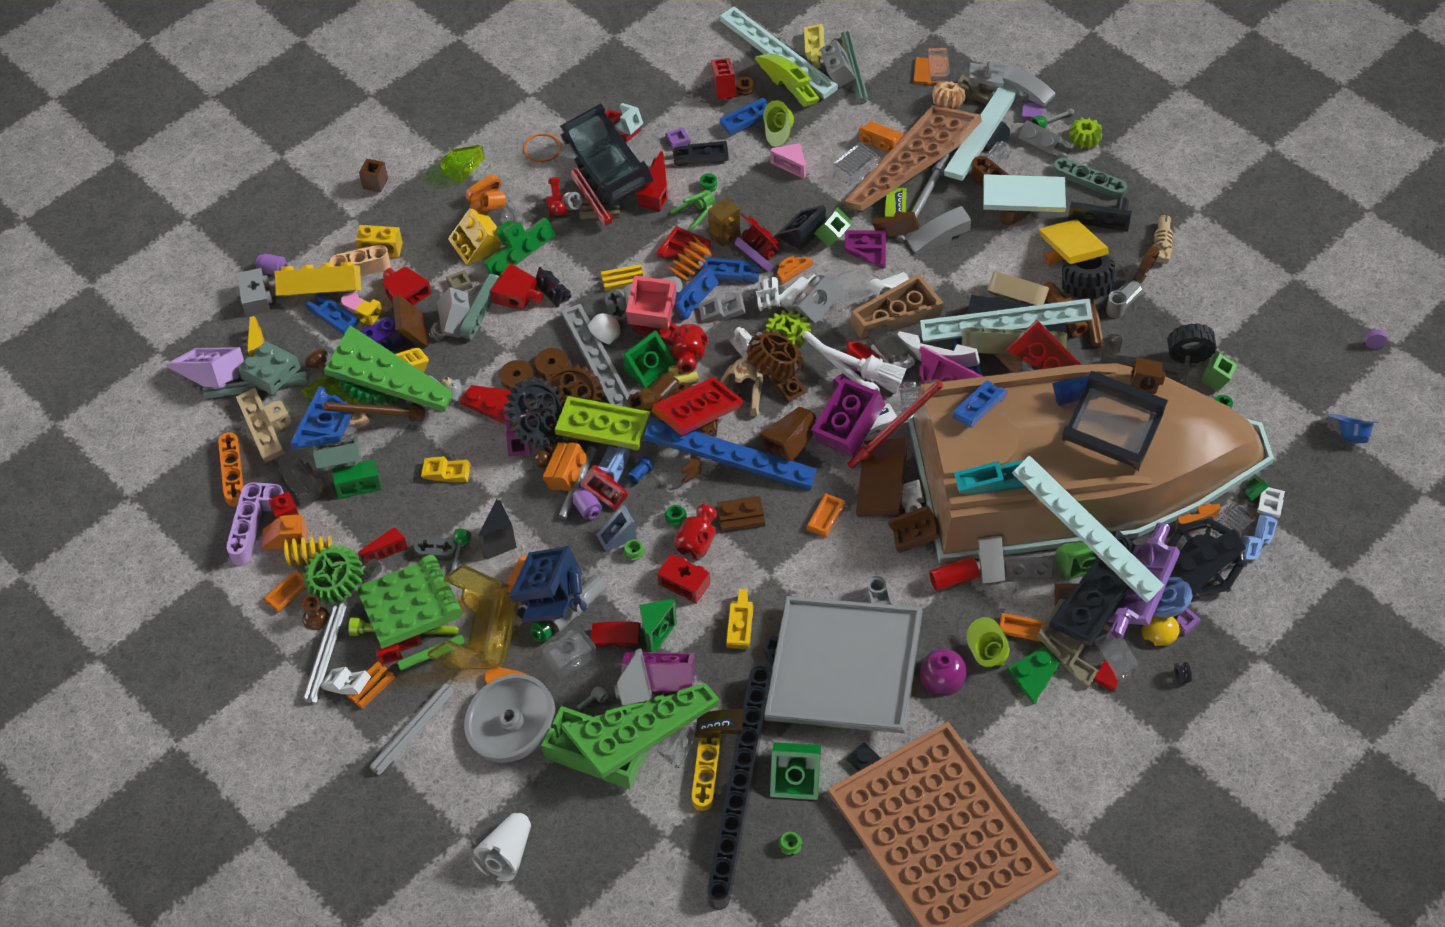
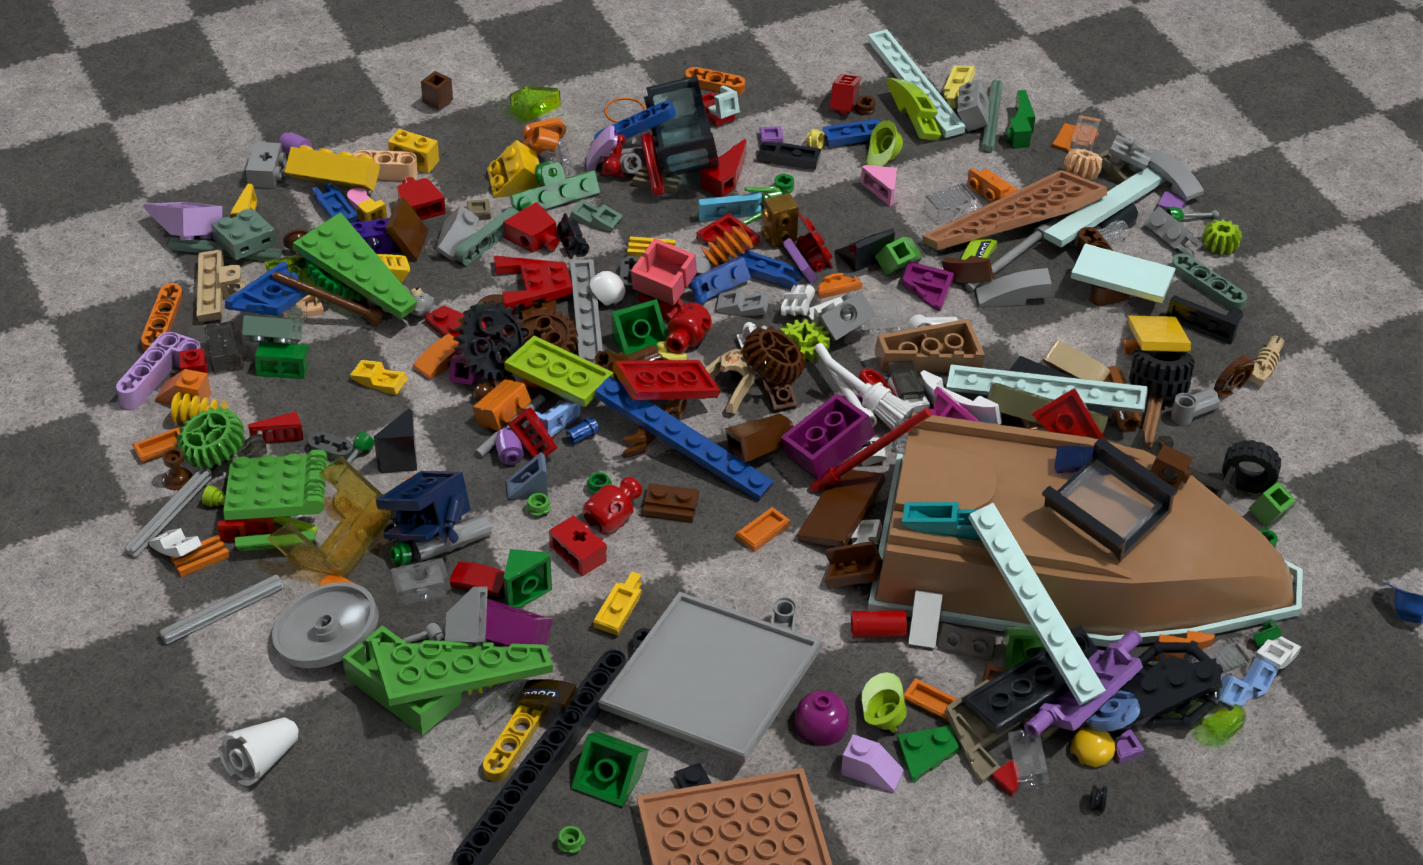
camera: 15 degrees right, 10 degrees down
(488, 435) = (435, 358): none -> orange slope
(541, 193) = (601, 147): none -> lavender slope
(545, 333) = (540, 280): none -> red wing
(557, 260) = (590, 215): none -> sand green slope
(583, 143) = (643, 120): none -> blue beam
(601, 92) = (705, 77): none -> orange beam
(677, 217) = (715, 208): none -> medium azure plate
(717, 132) = (815, 138): none -> light yellow plate
(883, 74) = (1023, 124): none -> green slope
(979, 403) = (965, 443): blue plate -> none
(999, 701) = (870, 764): none -> lavender slope
(1254, 577) = (1225, 723): none -> clear neon green hair

